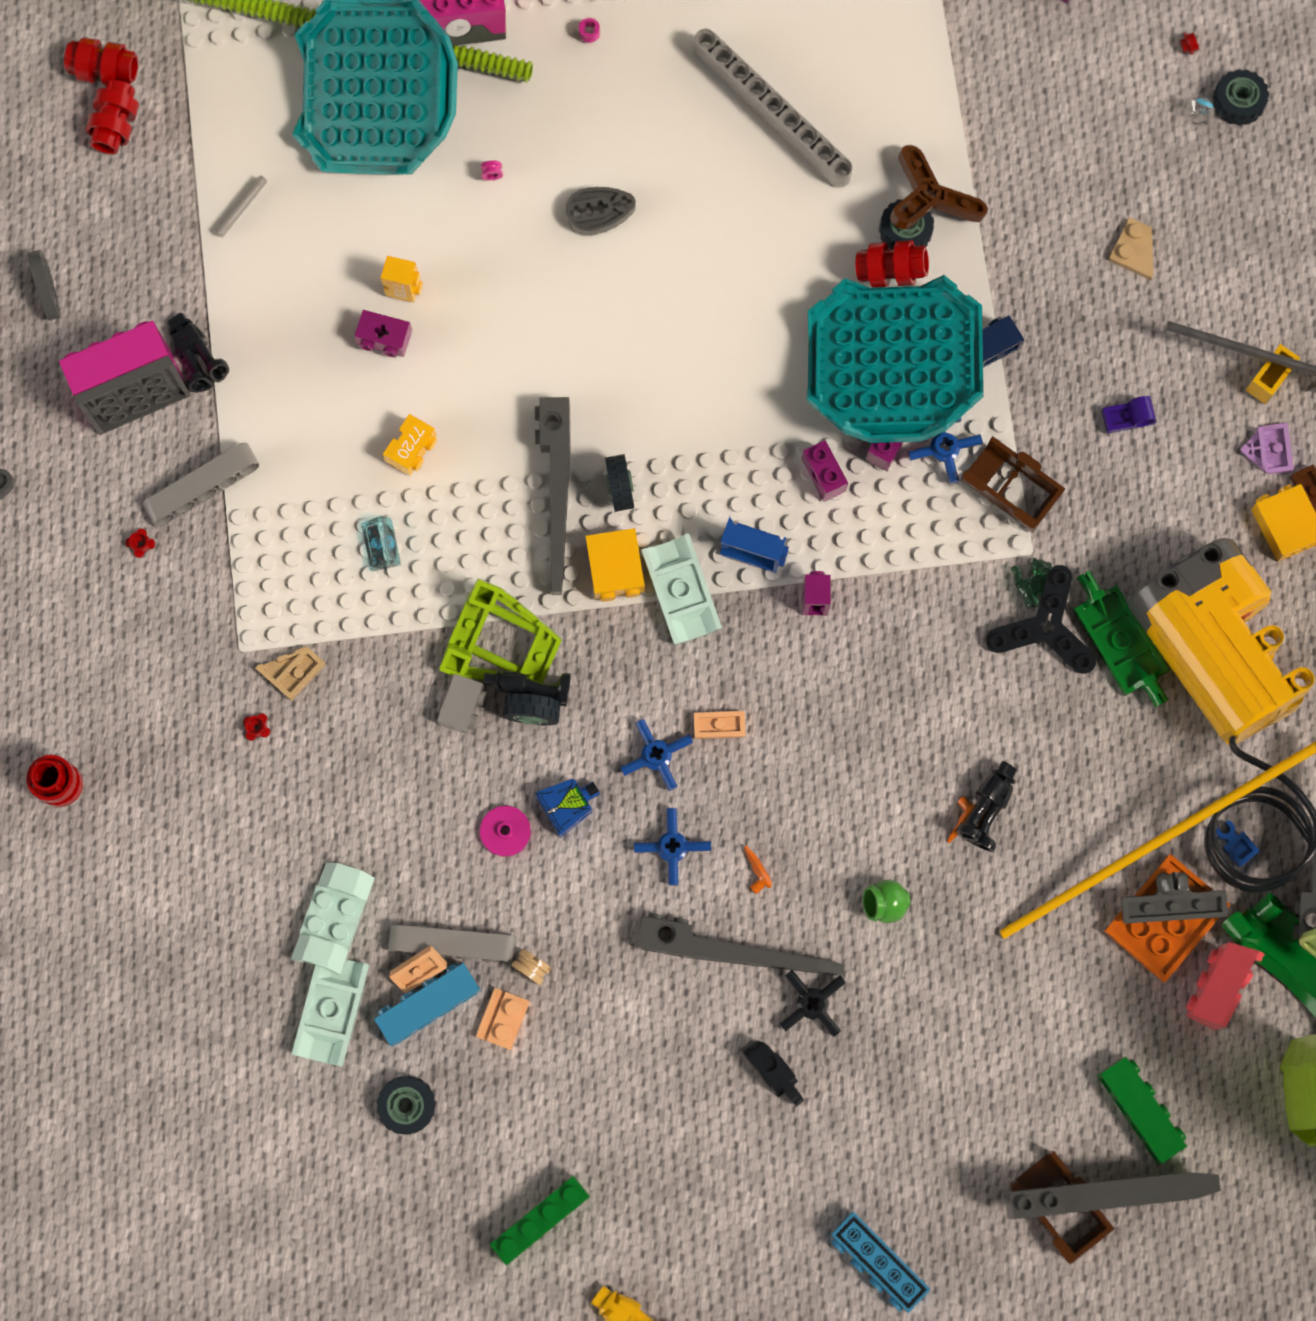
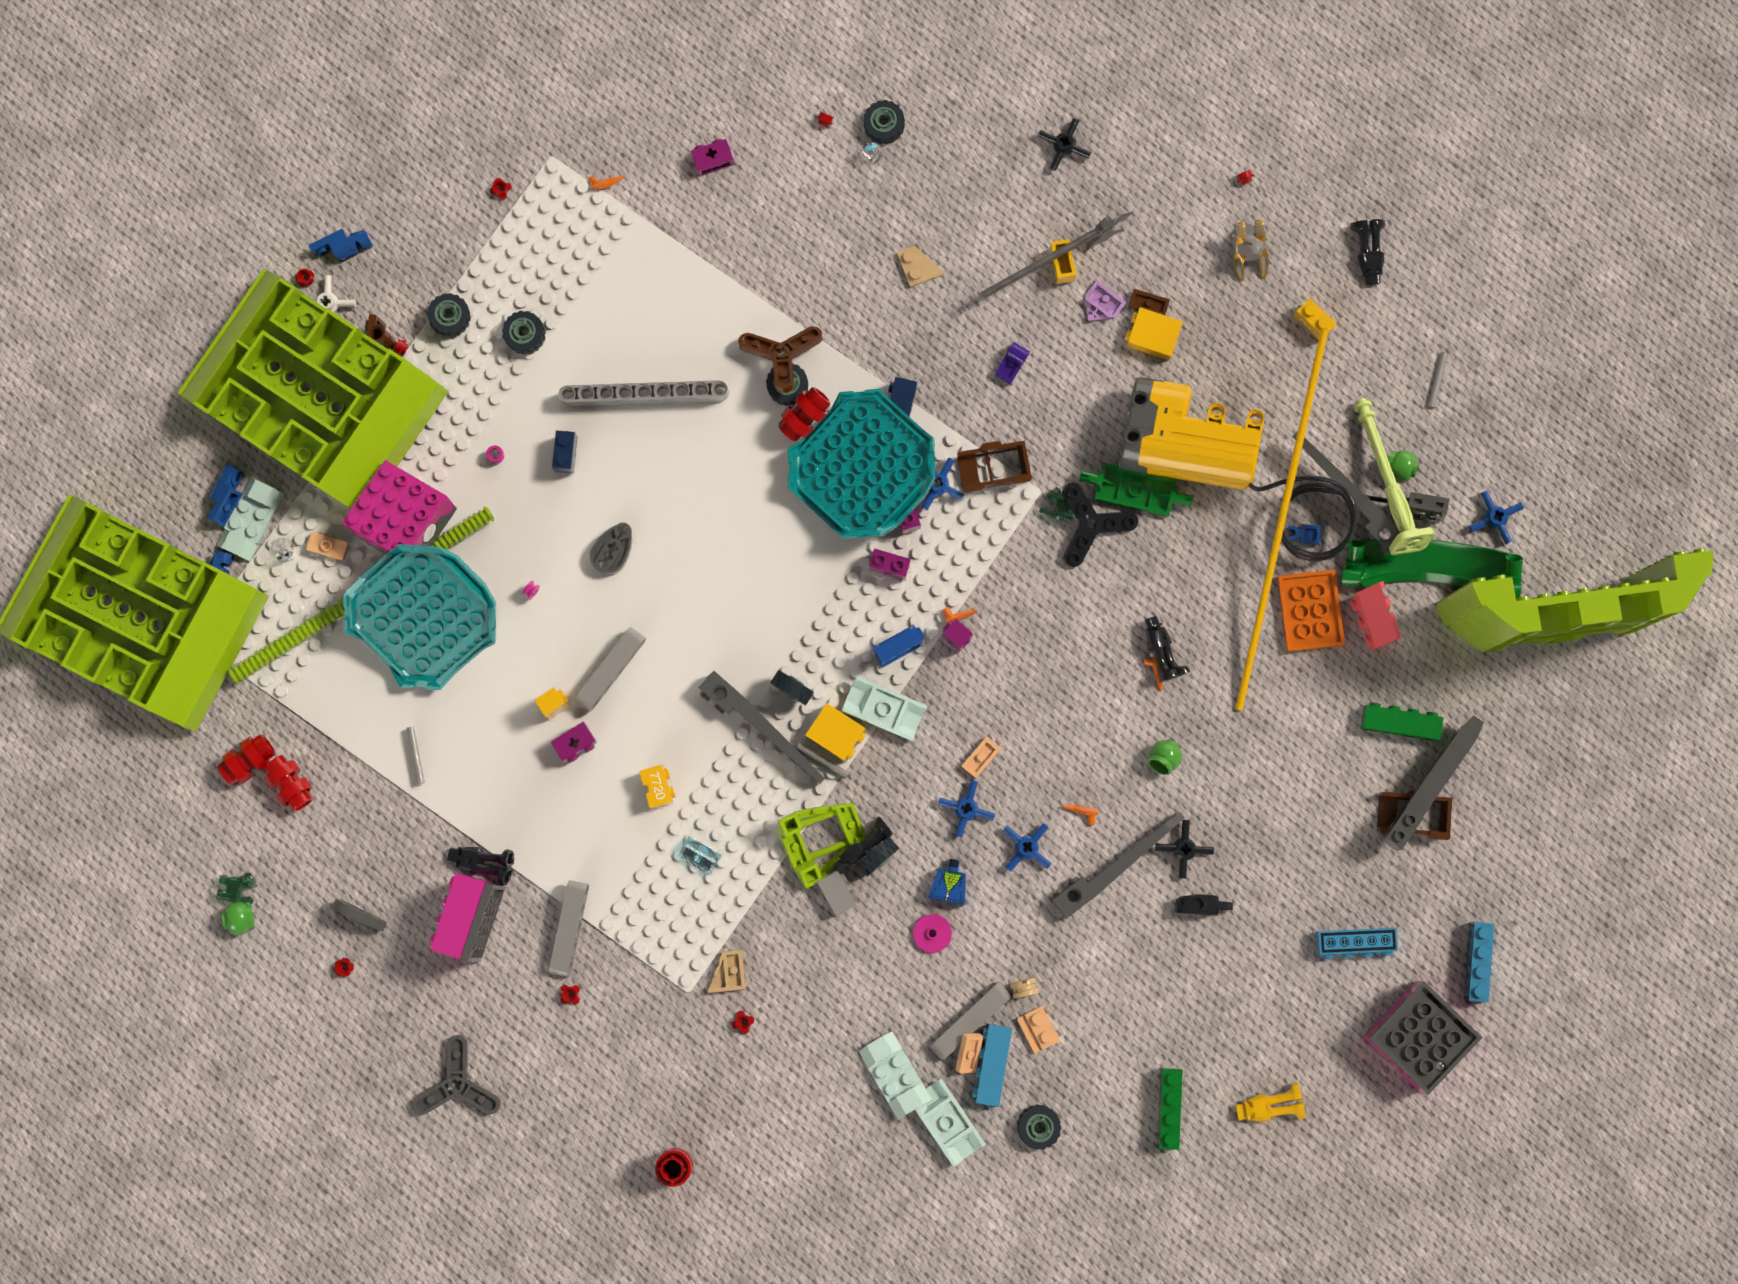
camera: 45 degrees left, 5 degrees up
(482, 305) = (609, 670): none -> light grey beam
(577, 577) = (823, 761): none -> light grey bar
(649, 86) = (564, 452): none -> dark blue brick
(838, 582) = (959, 615): none -> orange bar
(1173, 902) = (1307, 600): dark grey plate -> none

